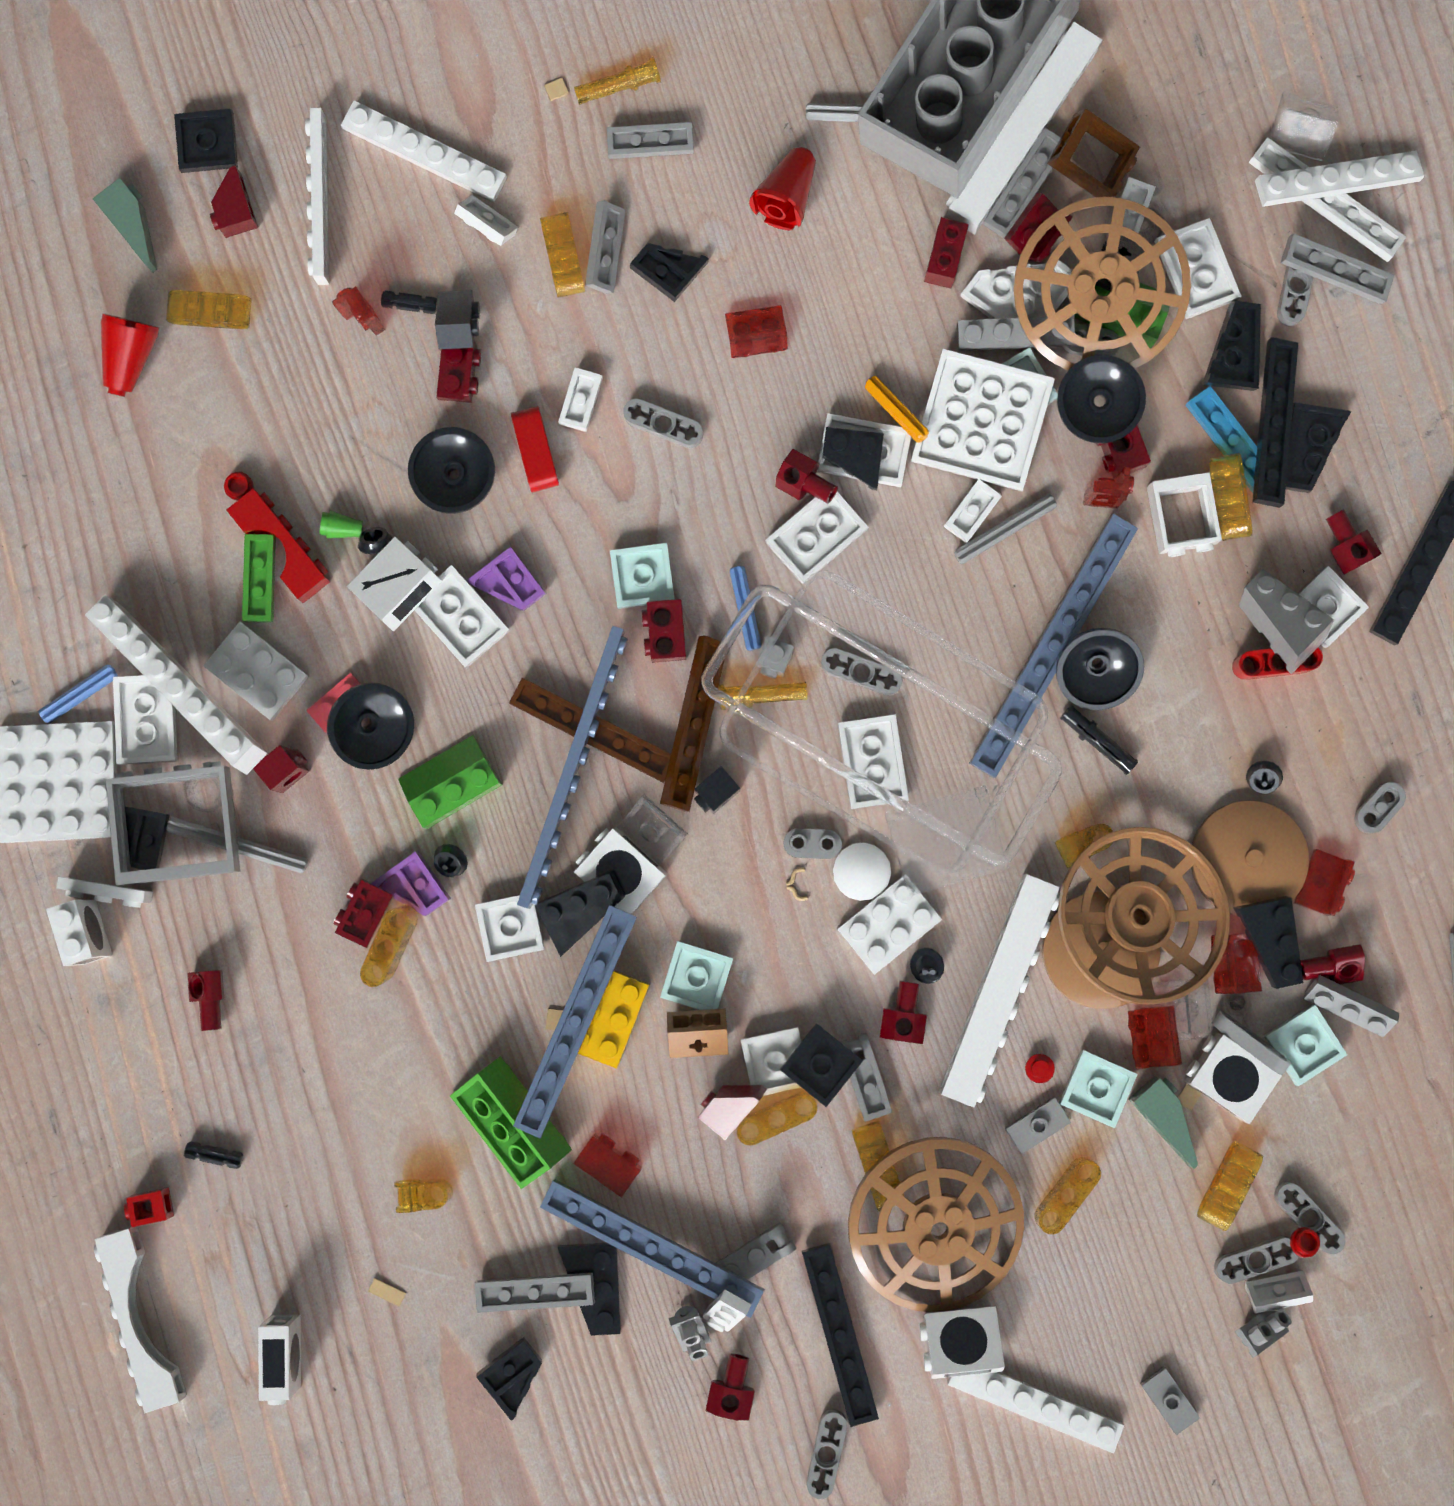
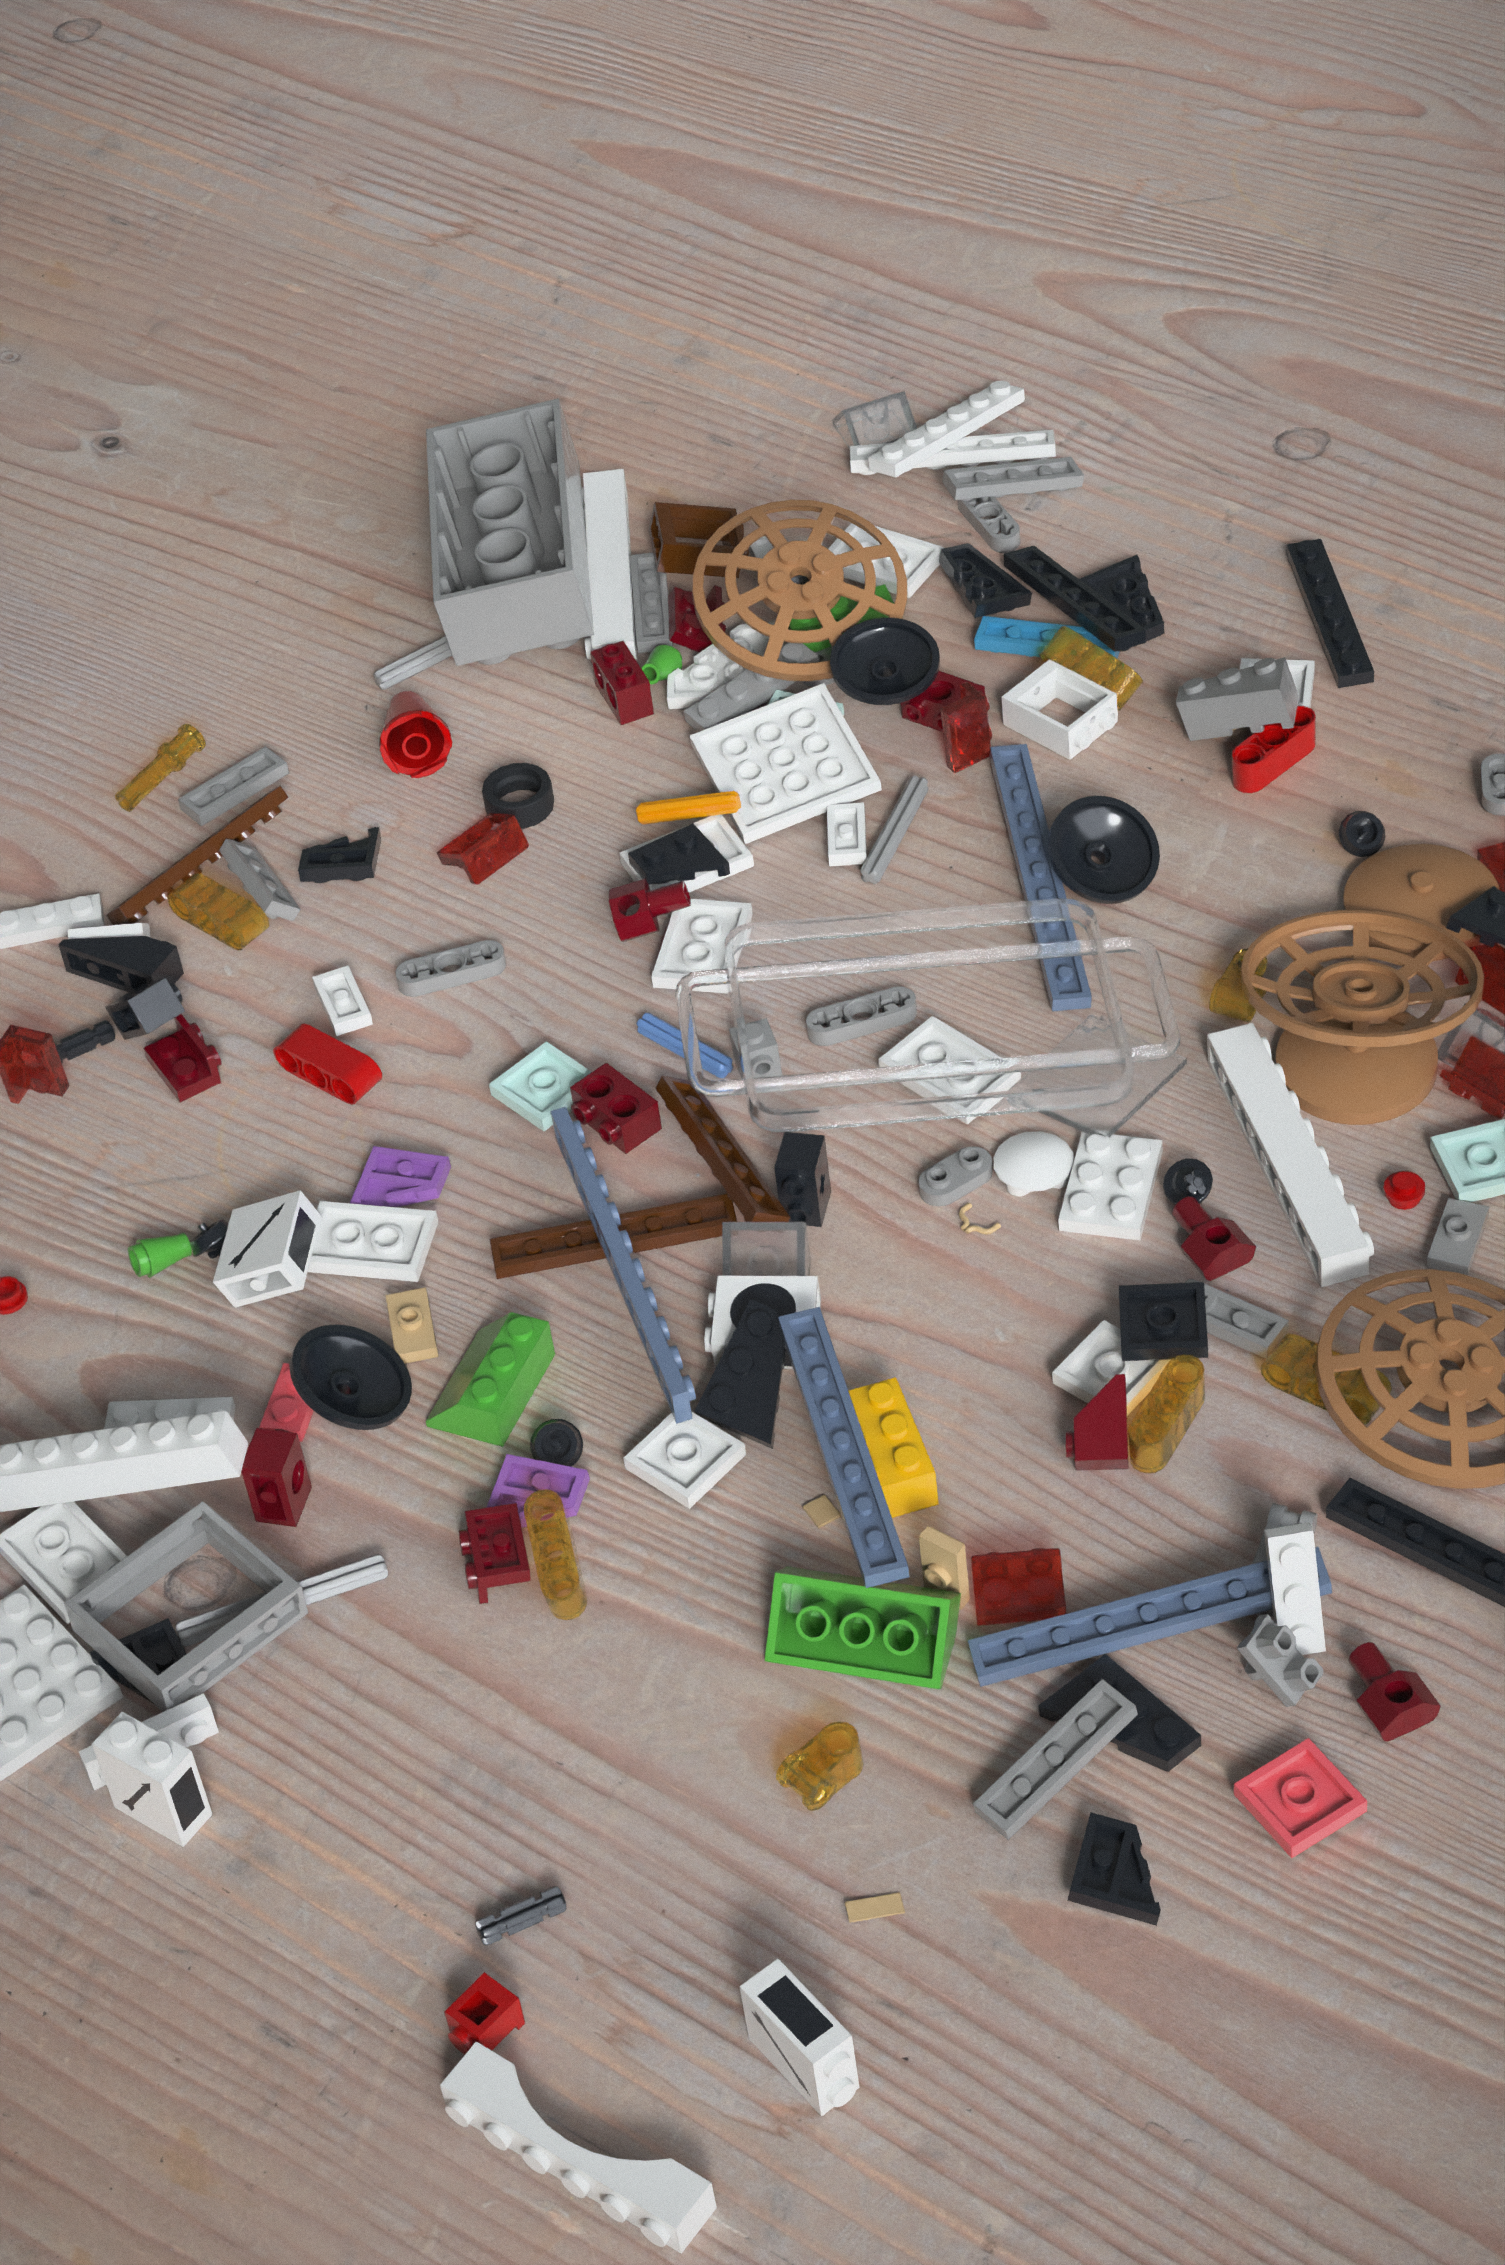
camera: 30 degrees left, 40 degrees down
(208, 990) = (365, 1751): dark red piece -> none
(258, 578) = (100, 1353): bright green plate -> none
(300, 572) = (55, 1301): red arch -> none
(439, 455) = (249, 1123): black dish -> none
(439, 700) = (412, 1325): none -> tan plate
(482, 260) = (122, 960): none -> black slope
(556, 89) = (96, 815): tan window -> none
(572, 1133) = (944, 1563): none -> tan plate
(582, 192) = (159, 888): none -> reddish brown plate
(635, 1412) = (1300, 1797): none -> coral plate
(696, 977) = (946, 1359): light aqua plate -> none
(697, 1033) = (975, 1400): medium nougat brick -> none
(768, 693) = (736, 1114): clear yellow pin -> none
(808, 281) = (514, 778): none -> black tyre
(983, 256) = (661, 663): none -> bright green cone
(1091, 733) = (1164, 910): black pin -> none
(1348, 536) = (1248, 636): dark red piece -> none

